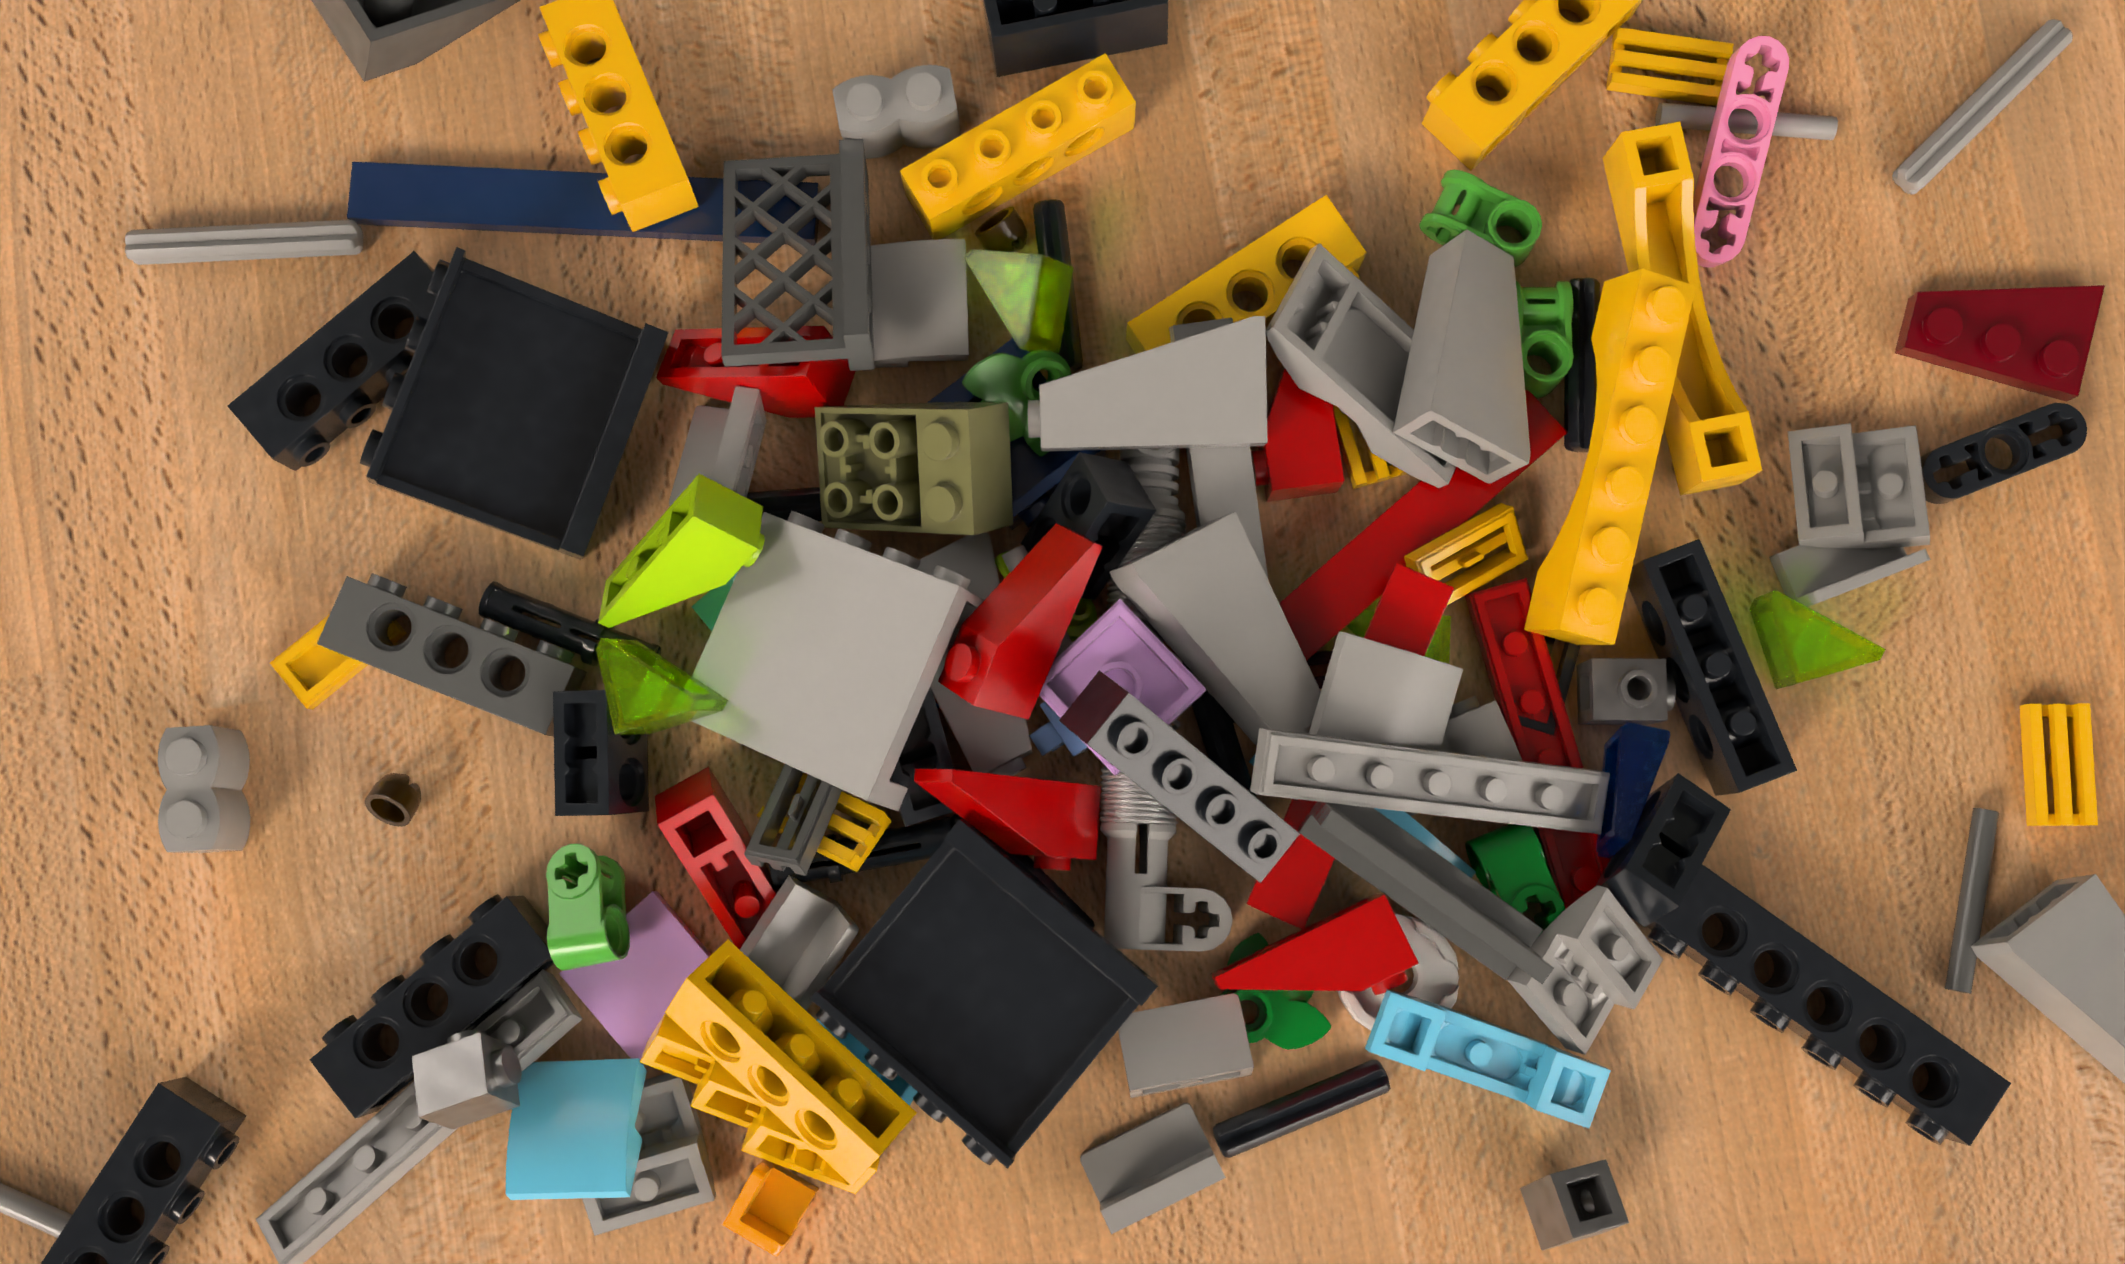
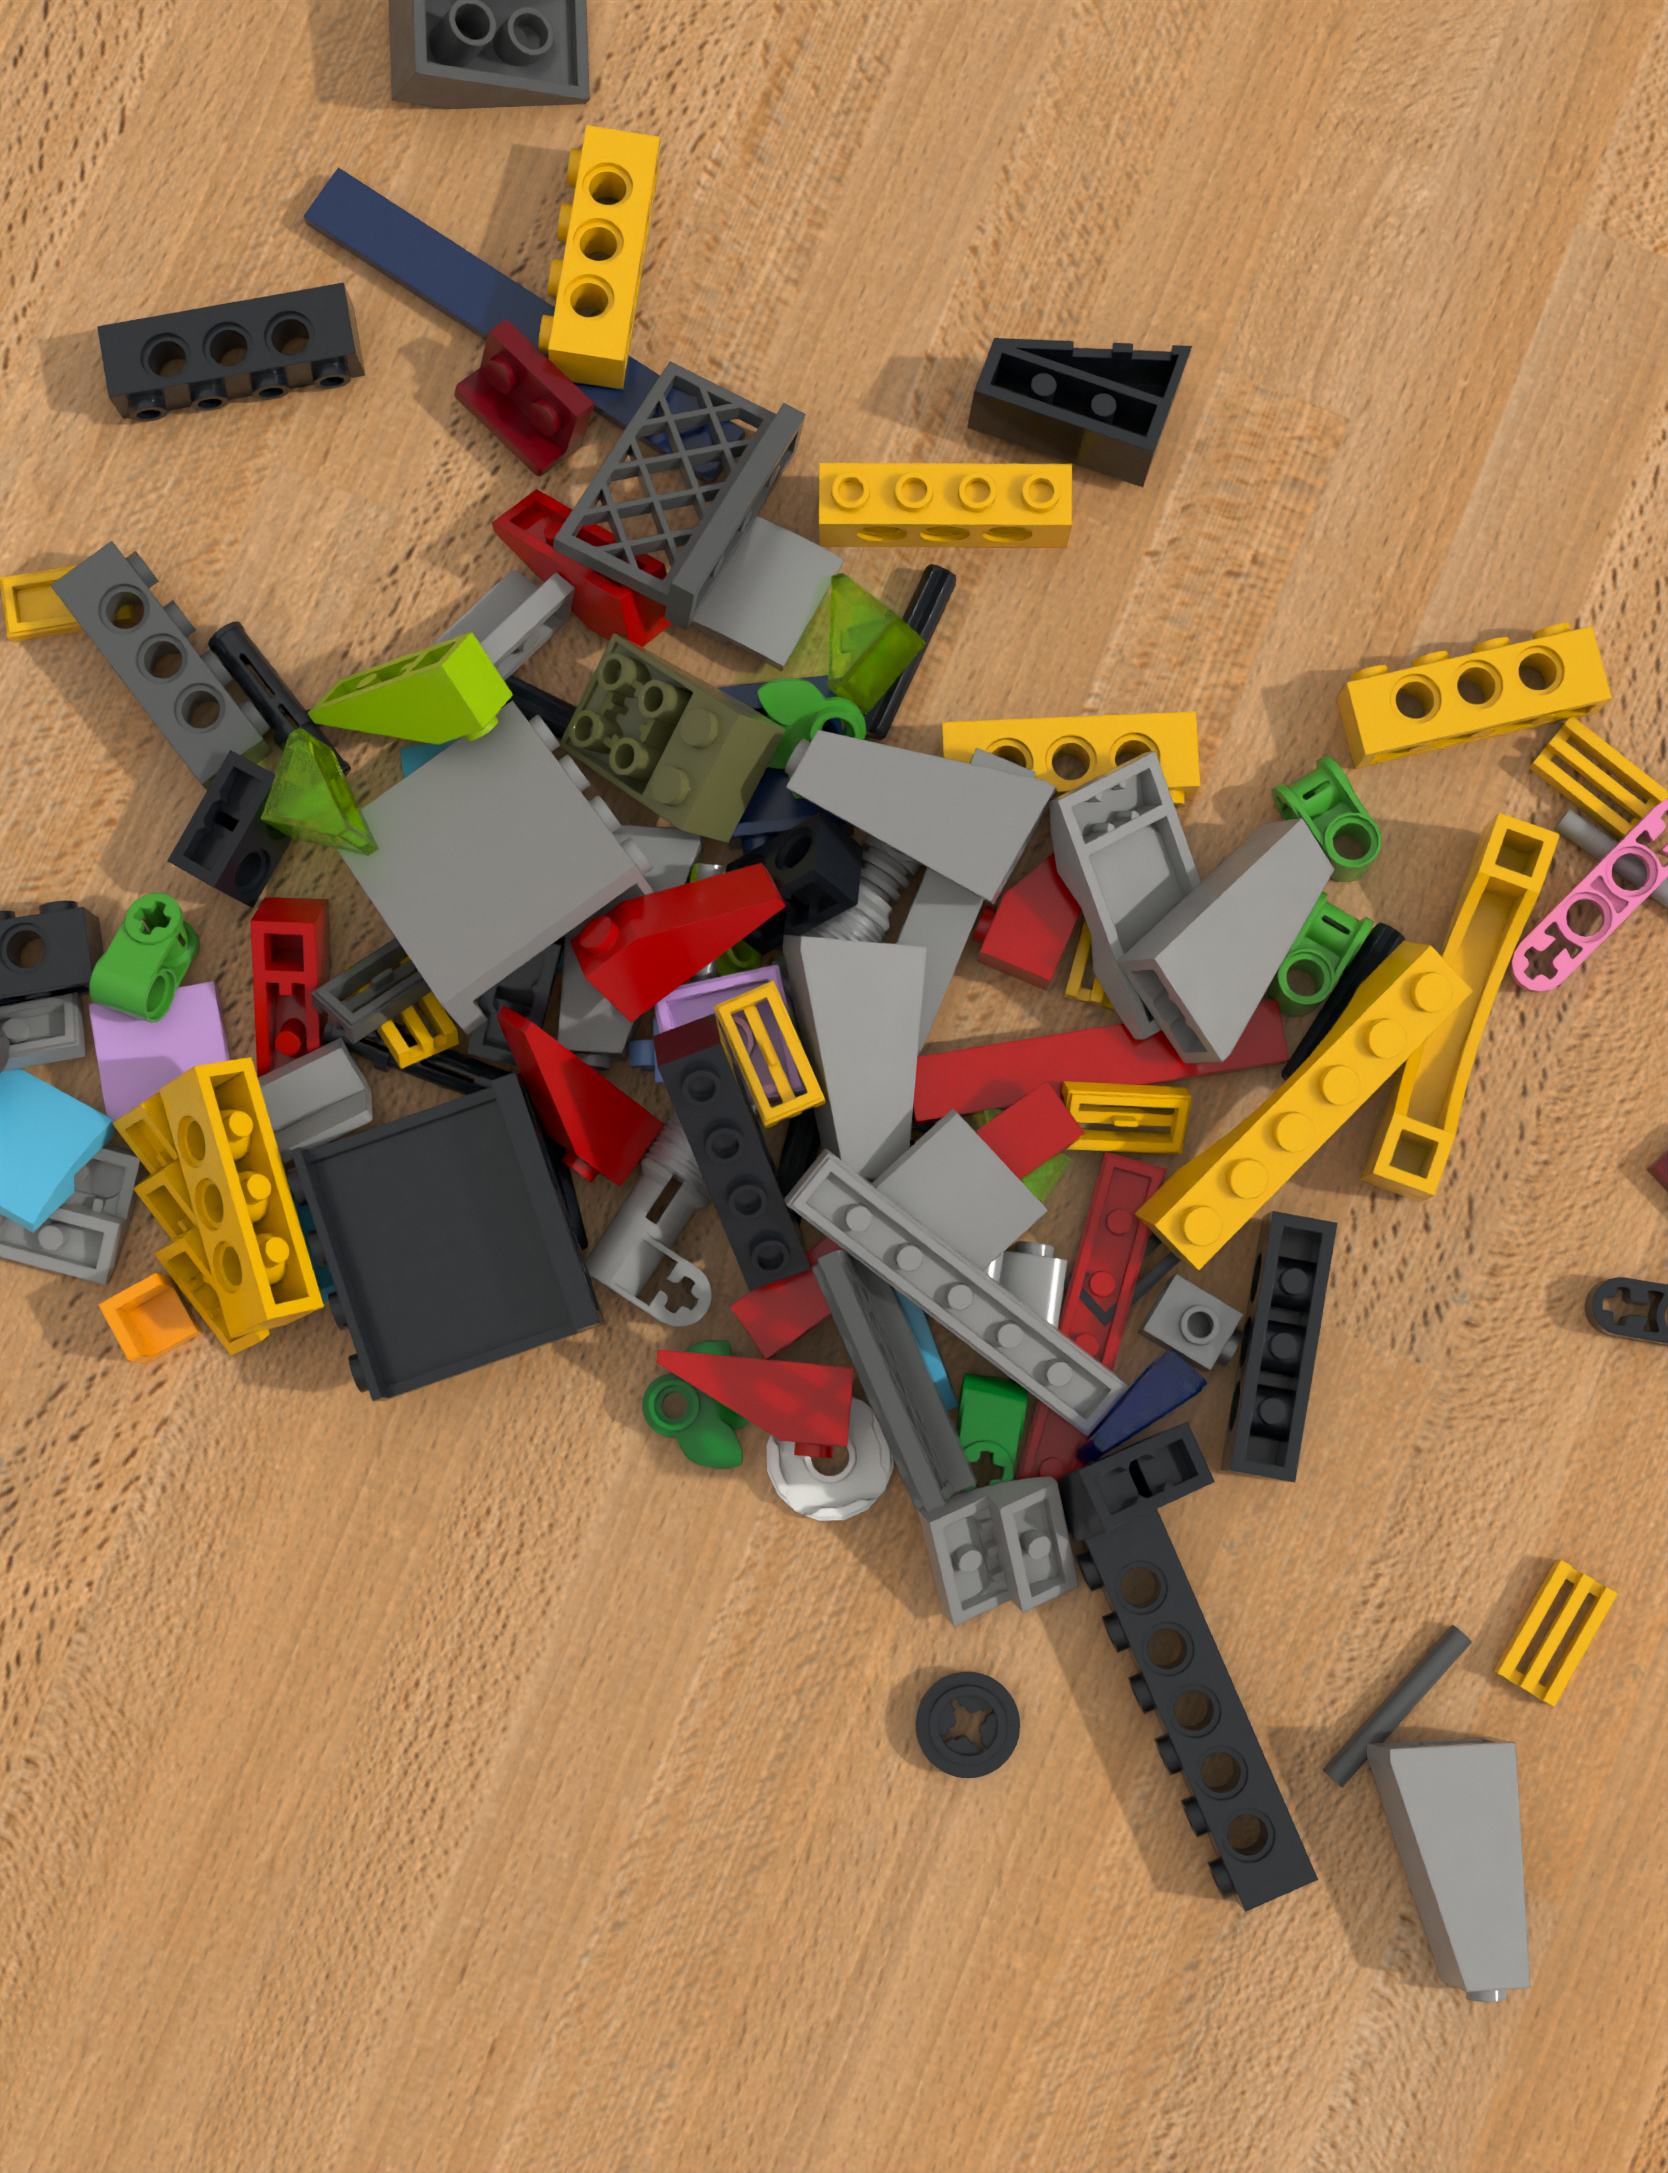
camera: 30 degrees right, 0 degrees up
(244, 242) = (200, 184): light grey axle -> none
(394, 799) = (36, 764): dark brown hinge -> none
(513, 406) = (348, 474): black panel -> none
(624, 260) = (526, 400): none -> dark red bracket
(908, 110) = (867, 410): light grey brick -> none
(1003, 231) = (883, 572): dark brown hinge -> none
(1151, 1167) = (505, 1488): light grey panel -> none
(1185, 1045) = (598, 1399): light grey panel -> none
(1204, 708) = (791, 1106): none -> yellow tile
(1301, 1108) = (670, 1520): black axle -> none
(1487, 1057) = (862, 1572): medium azure slope -> none
(1574, 1204) = (858, 1747): flat silver brick -> none
(1670, 1115) = (958, 1754): none -> black gear
(1804, 643) = (1387, 1383): clear neon green slope -> none
(1822, 573) = (1471, 1329): light grey panel -> none
(1858, 488) = (1525, 1269): light grey slope -> none

